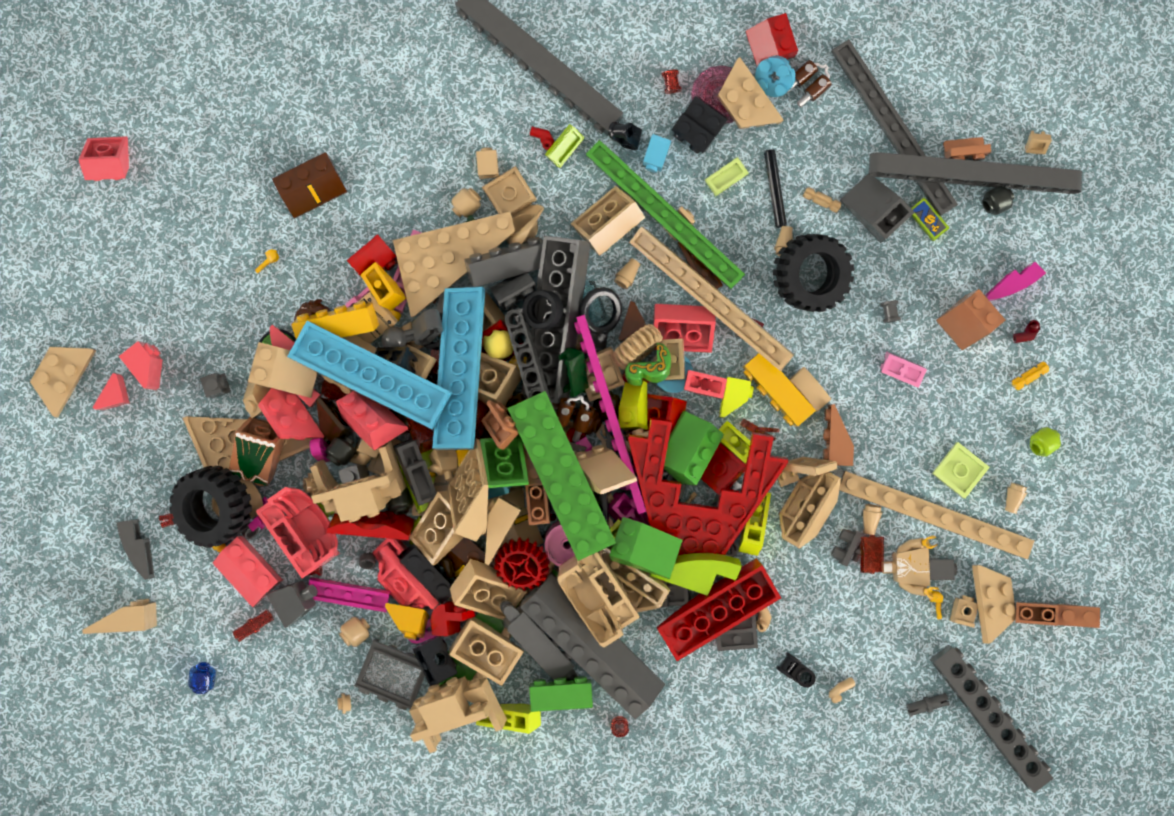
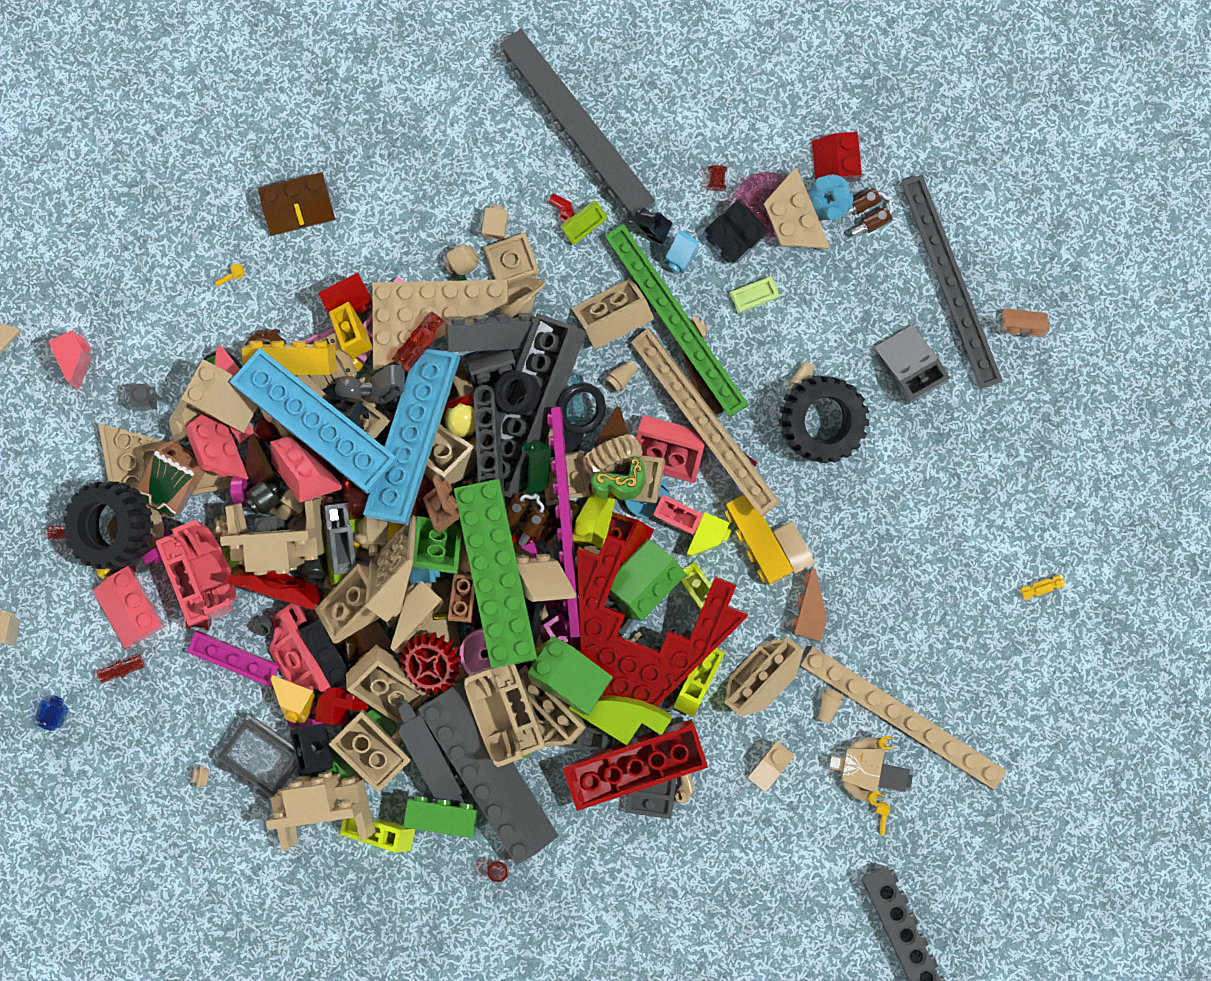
camera: 20 degrees right, 5 degrees down
(105, 158) = (82, 126): coral slope -> none
(113, 394) = (29, 383): coral slope -> none
(137, 549) = (14, 553): dark grey slope -> none
(293, 601) = (171, 651): dark grey torso -> none
(354, 631) = (230, 700): tan head -> none
(445, 284) = (418, 342): none -> clear red hinge
(723, 469) = (675, 612): red tile -> none
(753, 428) = (716, 571): clear red plant -> none
(775, 188) = (805, 318): black axle -> none
(787, 478) = (747, 635): tan tile -> none
(794, 668) = (707, 853): black piece -> none
(810, 466) = (771, 628): tan tile -> none
(822, 199) = (854, 342): tan axle -> none
(833, 582) = (771, 766): none -> tan slope
(841, 687) = (753, 885): tan arm -> none
(845, 555) = (802, 721): dark grey hips -> none
(872, 554) = (821, 743): clear red piece -> none
(890, 311) = (902, 481): dark grey bush -> none
(903, 369) = (901, 548): bright pink hinge -> none
(927, 704) = (846, 926): dark grey pin -> none
(929, 219) = (967, 390): tile -> none
(958, 615) = (902, 834): tan brick -> none
(960, 470) = (941, 674): yellowish green plate -> none
(970, 319) = (986, 509): nougat slope -> none
(975, 173) = (1028, 350): dark grey beam -> none
(994, 602) = (945, 828): tan wing -> none
(998, 200) = (1048, 385): pearl dark grey head -> none
(1015, 282) = (1047, 481): dark pink slope -> none
(1015, 497) = (995, 717): tan cone -> none
(1029, 333) = (1052, 540): dark red arm -> none
(1038, 143) = (1106, 333): tan tile -> none
(1045, 442) = (1042, 663): lime head -> none
(1057, 614) = (1013, 858): nougat slope -> none

